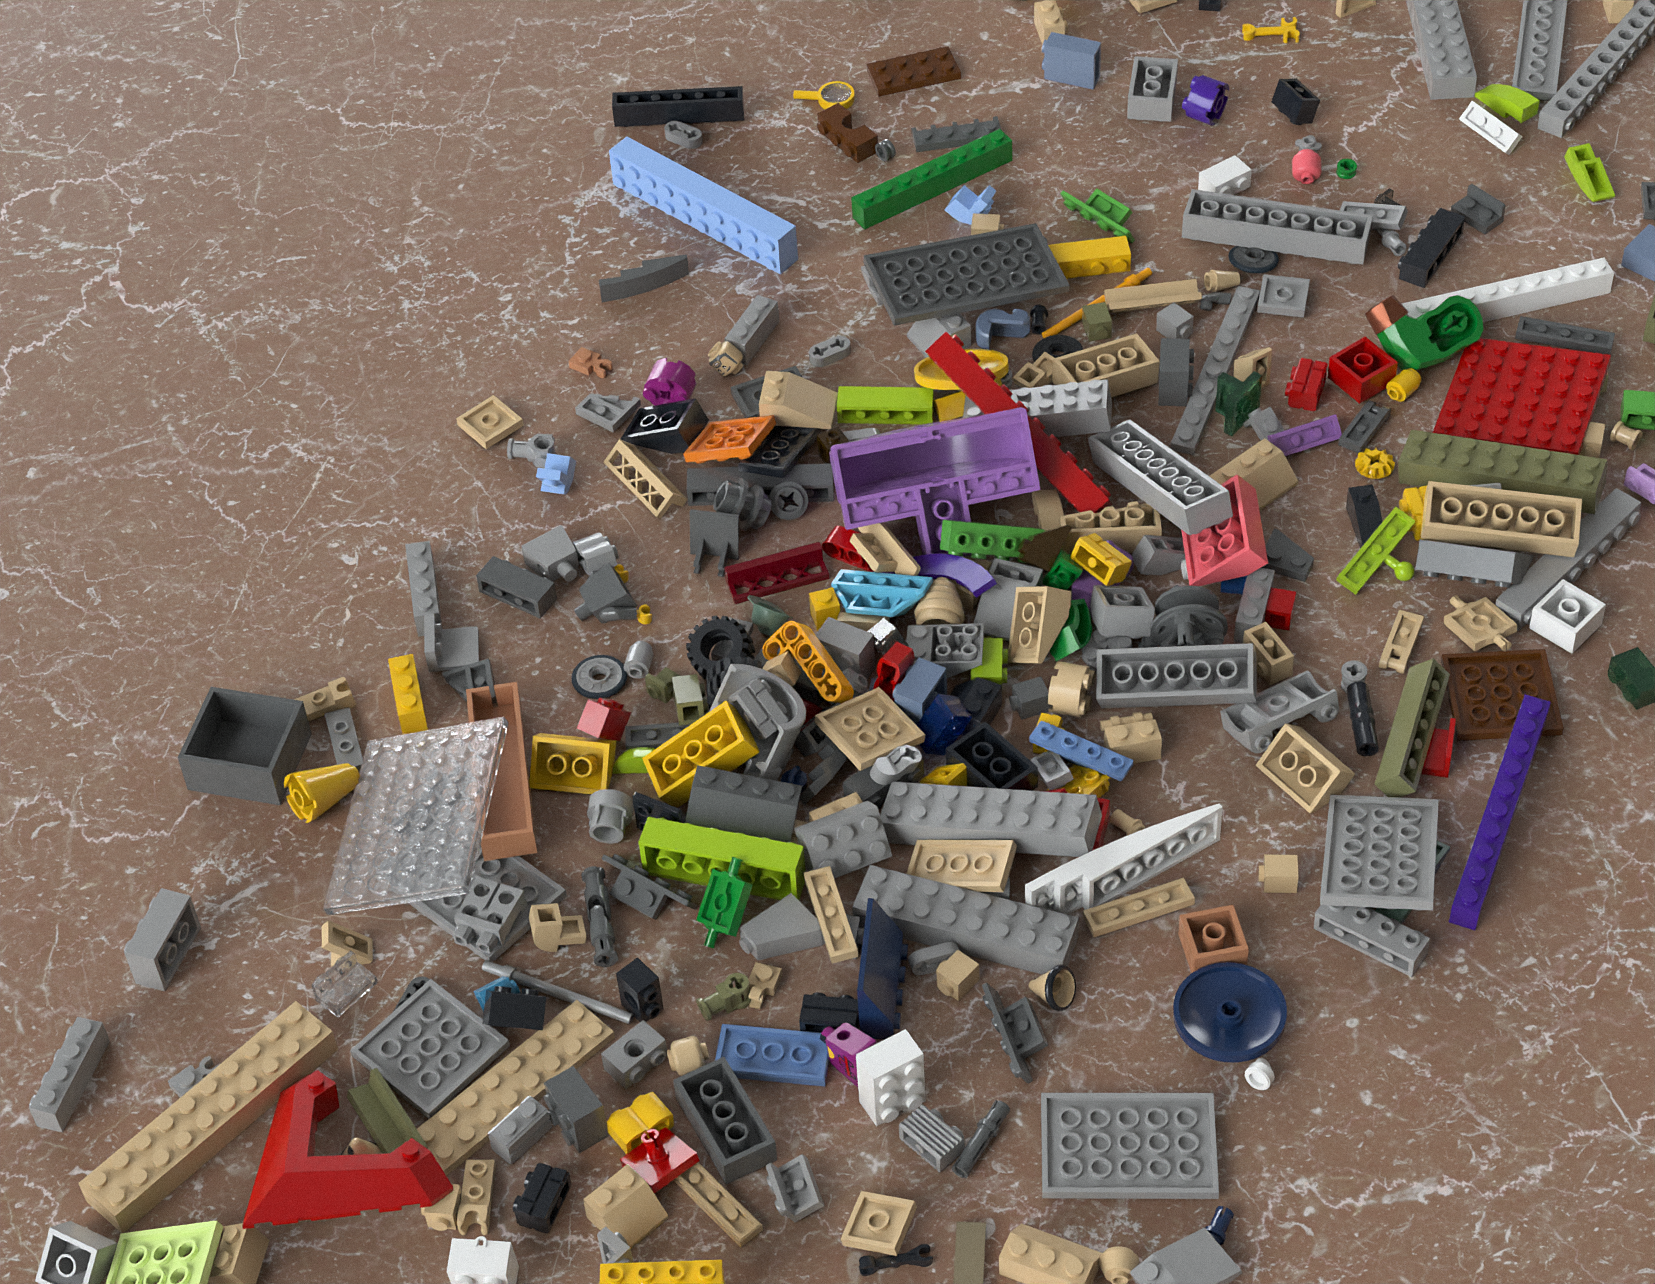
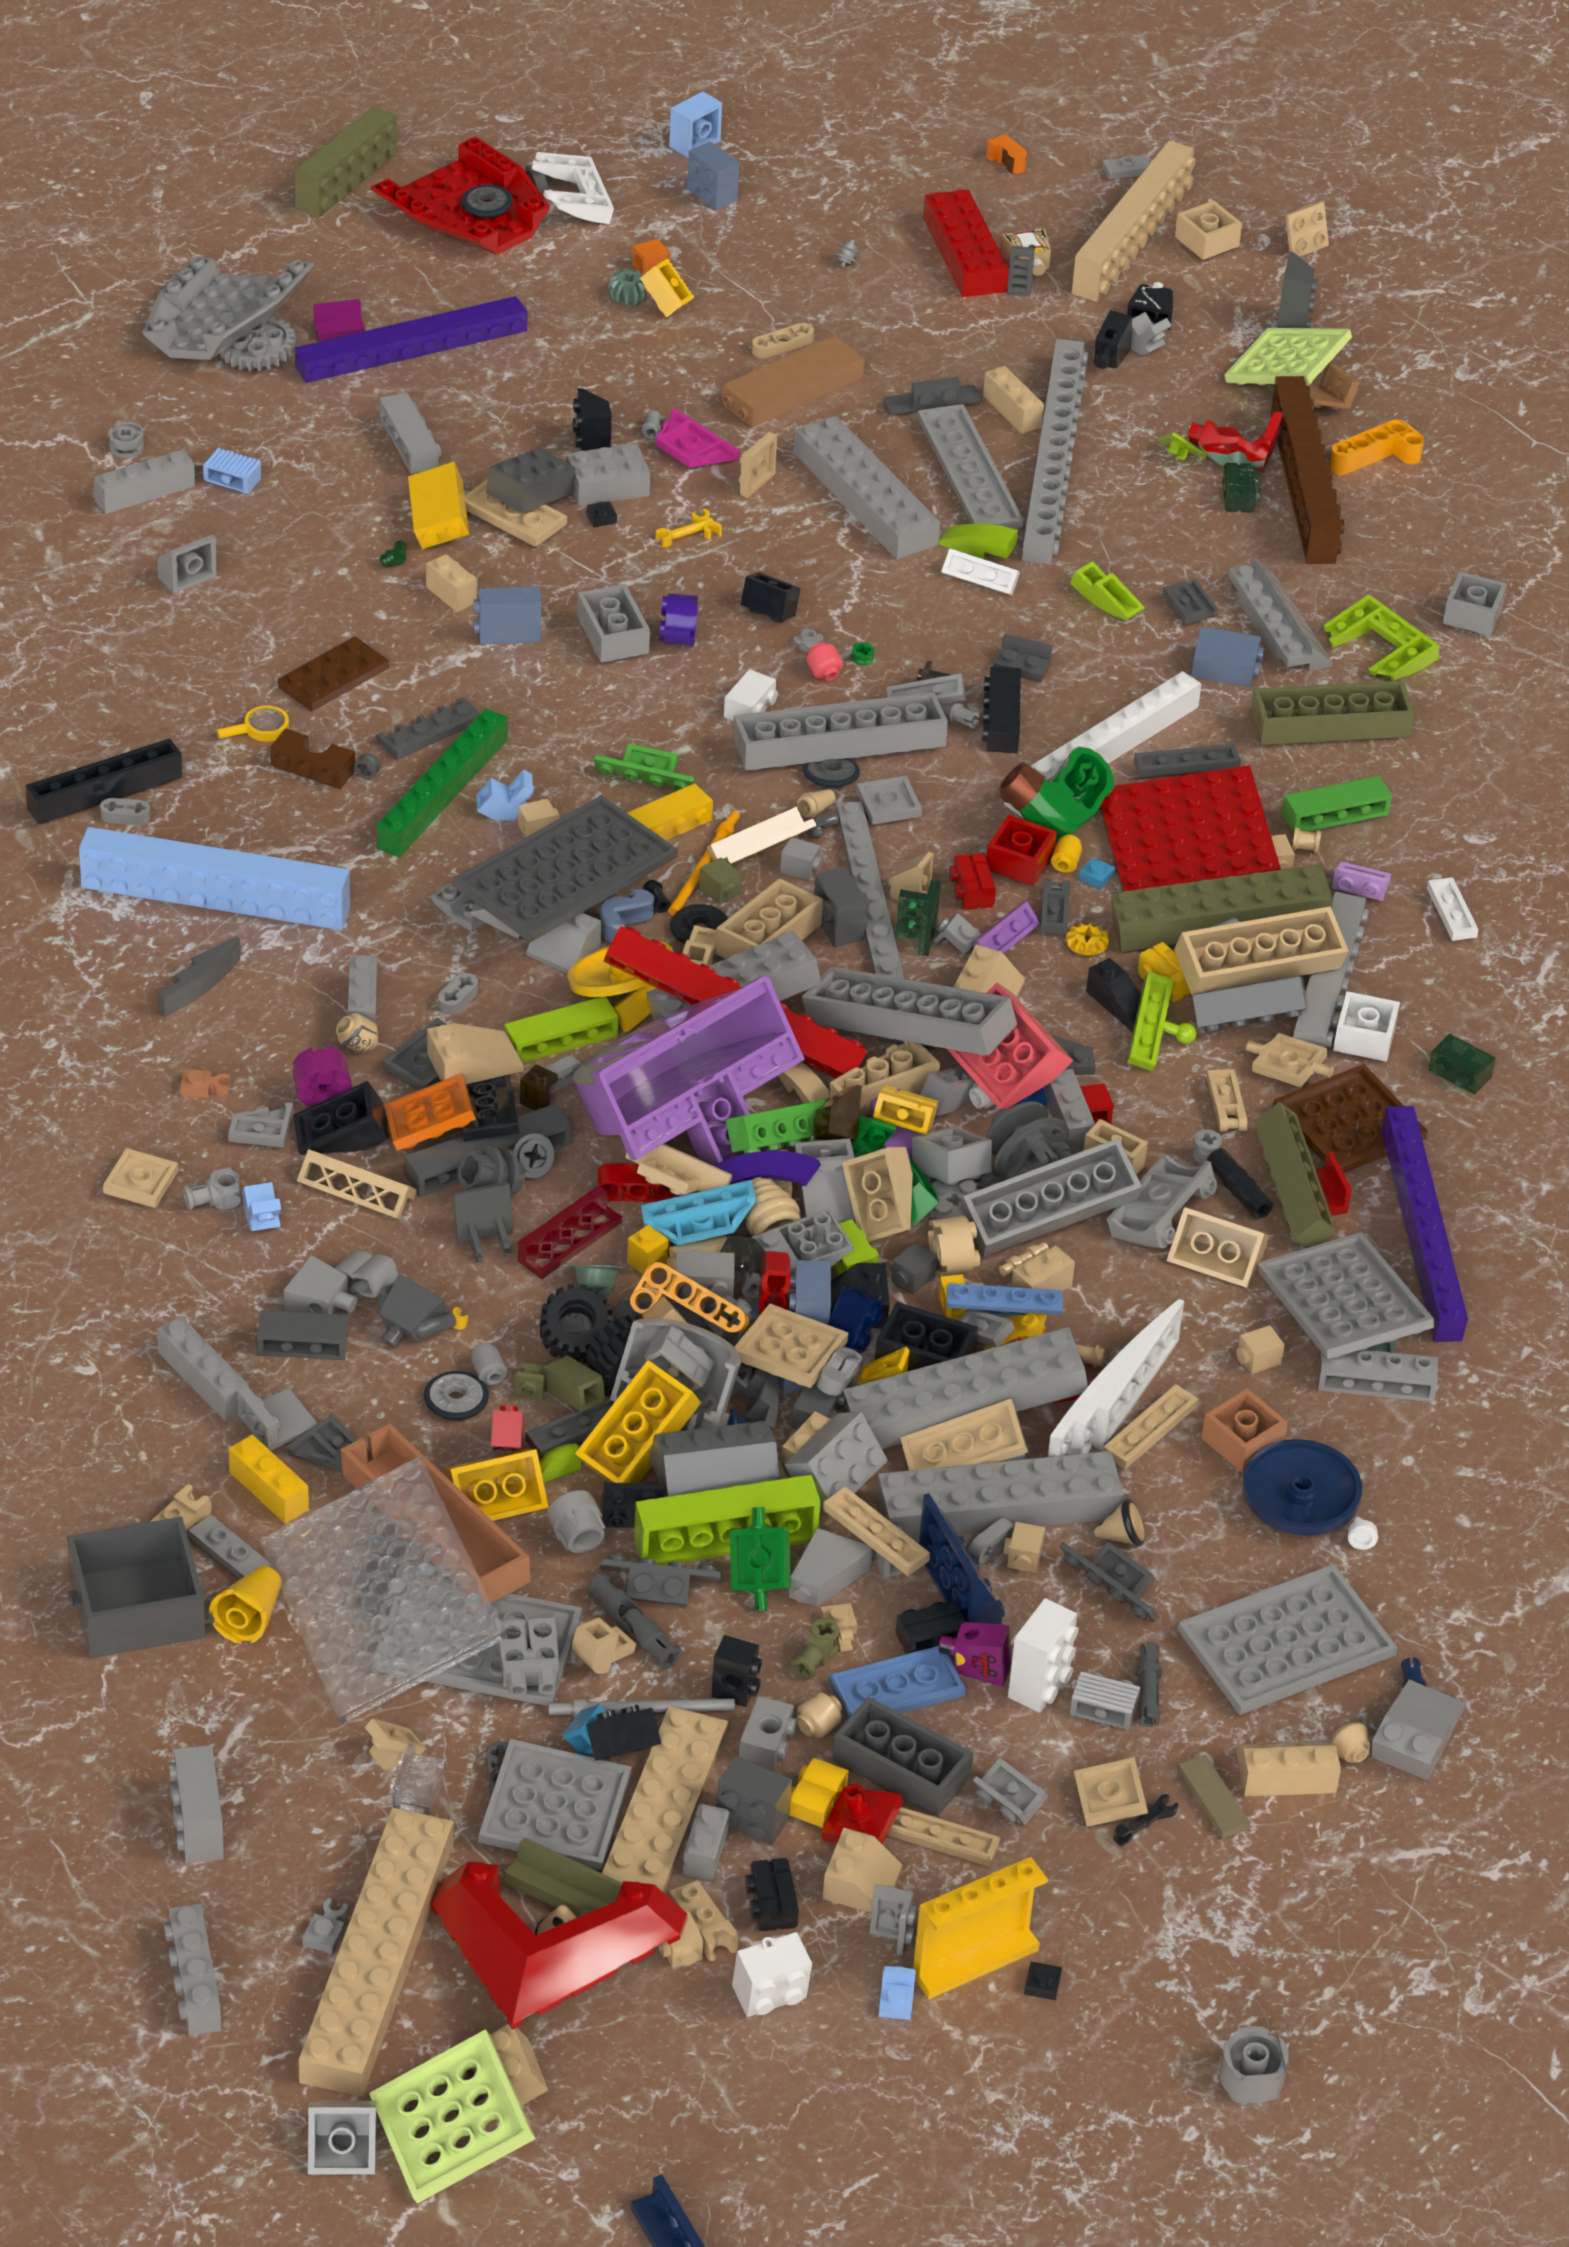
camera: 35 degrees left, 5 degrees down
(1422, 409) = (1097, 873): none -> dark azure plate

